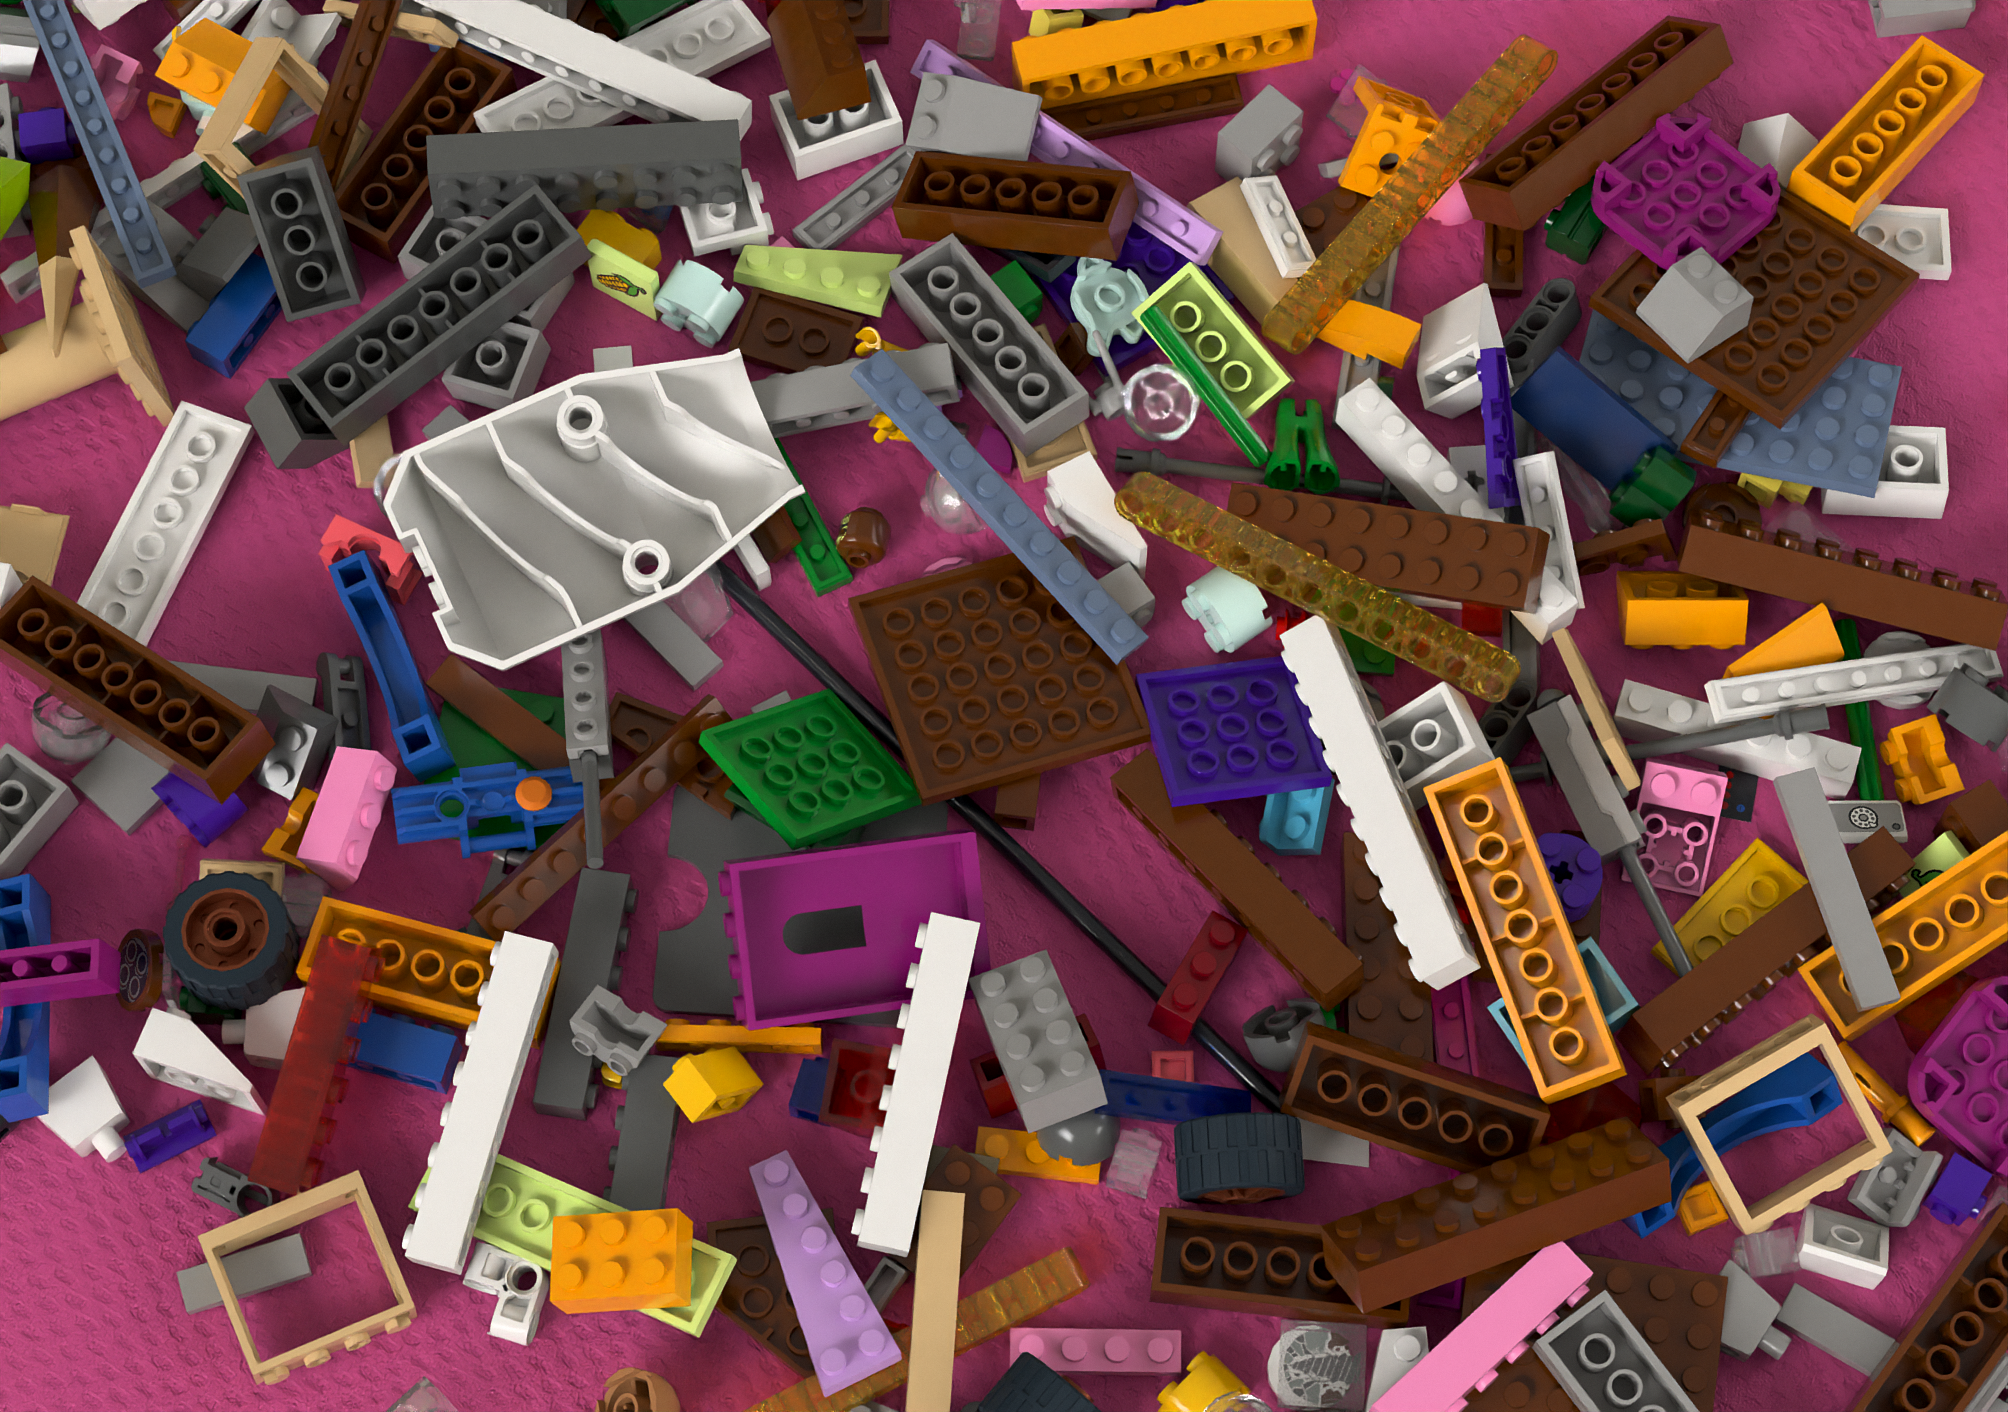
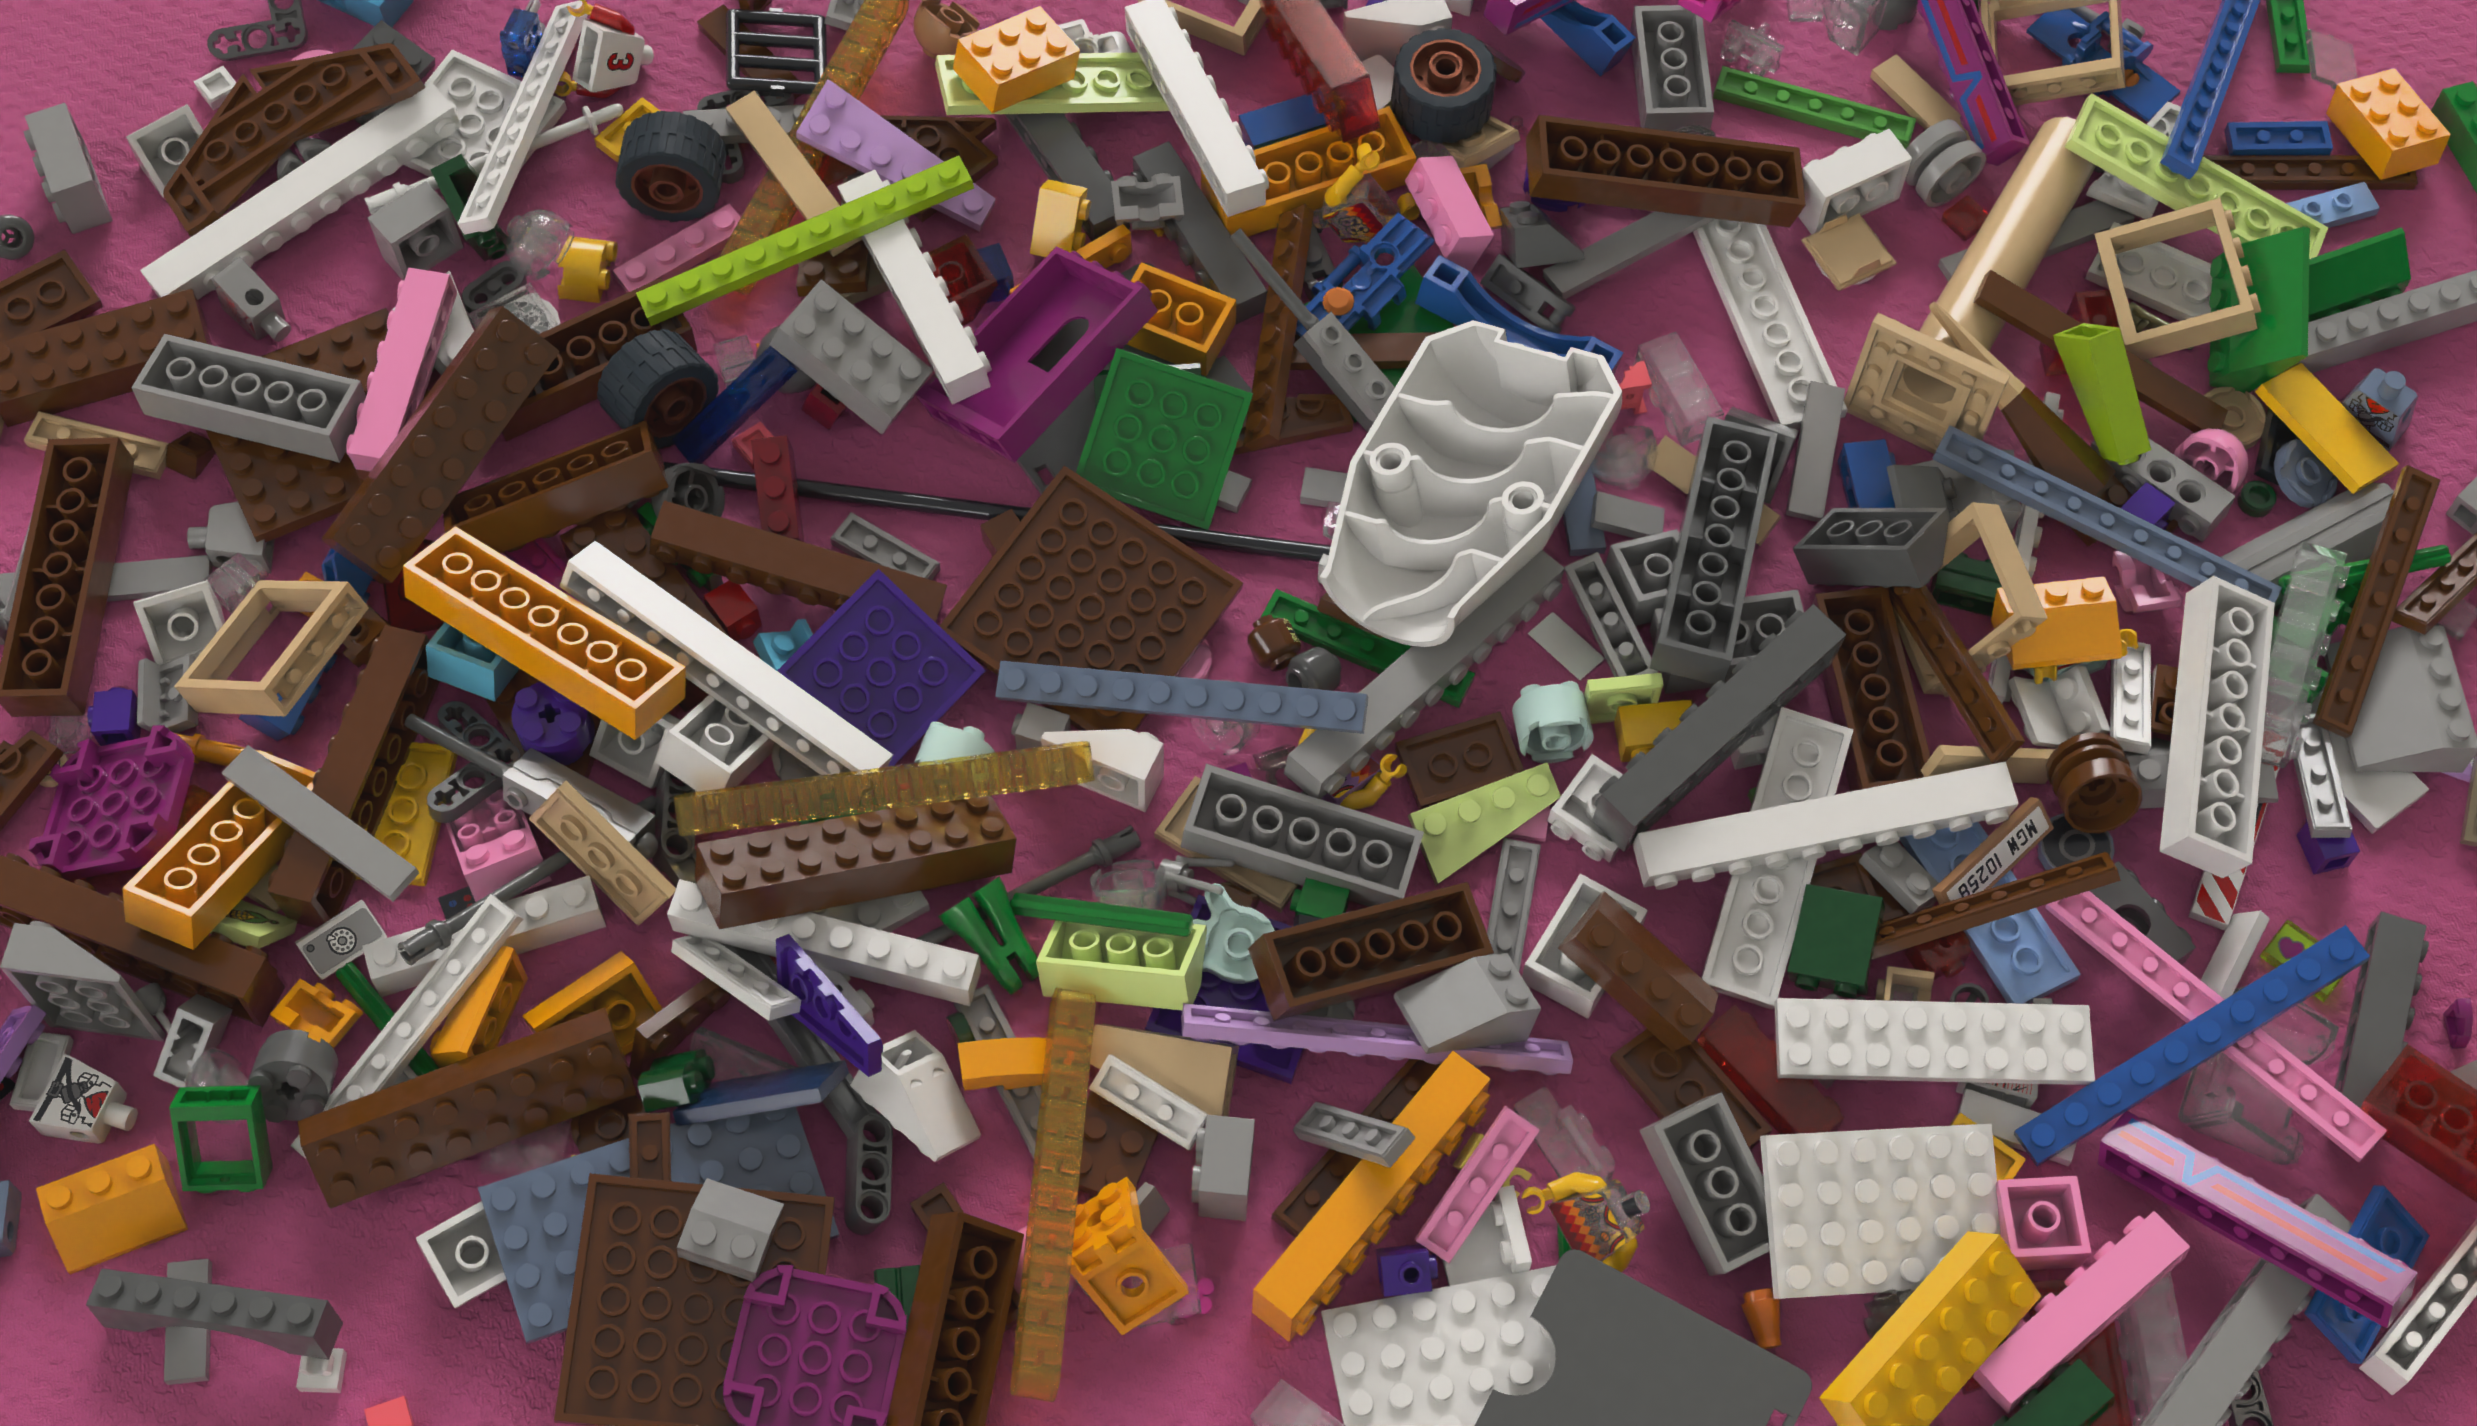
camera: 140 degrees right, 5 degrees down
(237, 386) = (1815, 451): none -> light grey tile
(300, 522) = (1678, 387): none -> clear brick
(422, 885) = (1358, 205): none -> torso
(577, 328) = (1608, 617): none -> light grey brick
(685, 896) = (1189, 319): none -> light orange brick
(852, 487) = (1314, 670): none -> dark grey head
(988, 1201) = (805, 240): none -> lime plate
(1133, 874) = (874, 545): none -> light grey tile
(1146, 84) = (1354, 1134): none -> light grey tile
(1320, 892) = (733, 610): none -> red brick
(1632, 914) = (467, 797): none -> dark grey beam

